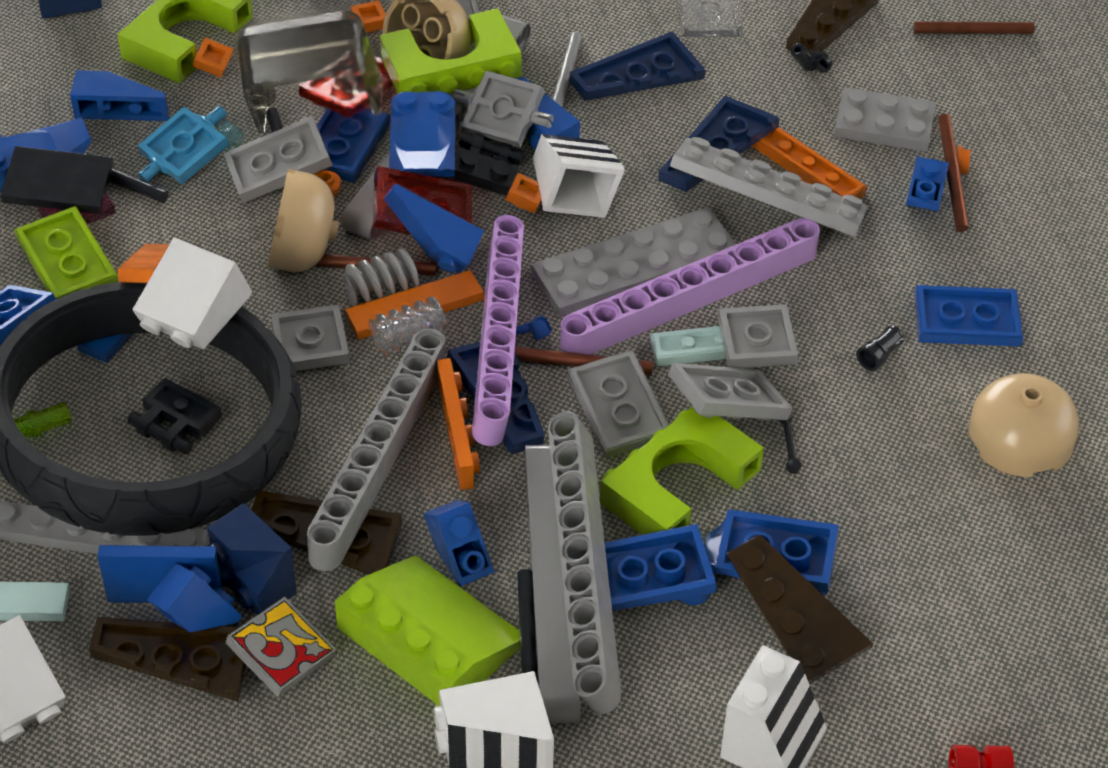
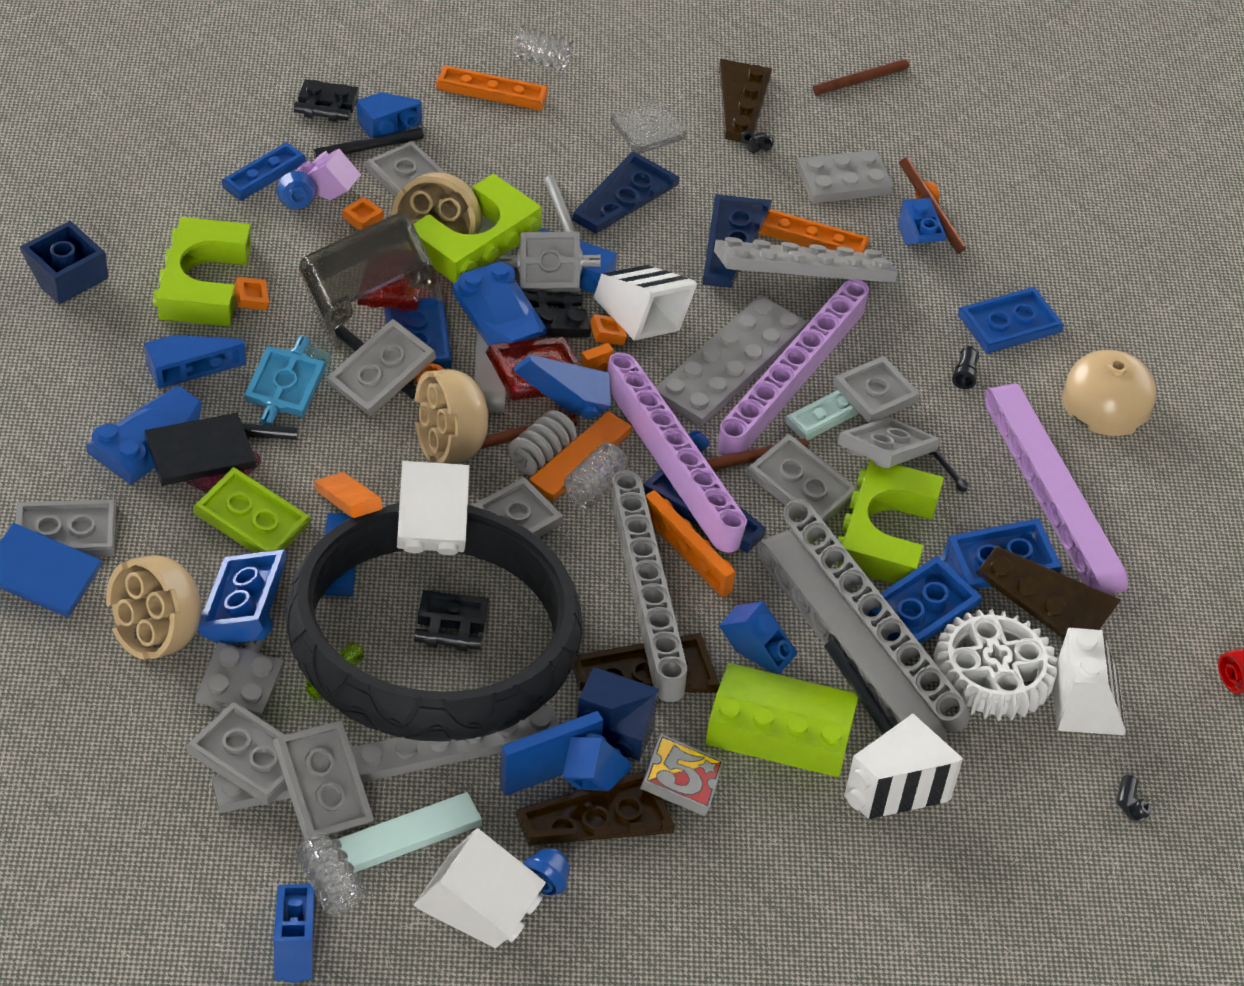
camera: 30 degrees left, 0 degrees up
(83, 688) = (552, 868): none -> blue cone
(487, 213) = (597, 357): none -> orange plate
(652, 633) = (997, 663): none -> white gear
(889, 508) = (1055, 489): none -> lavender beam

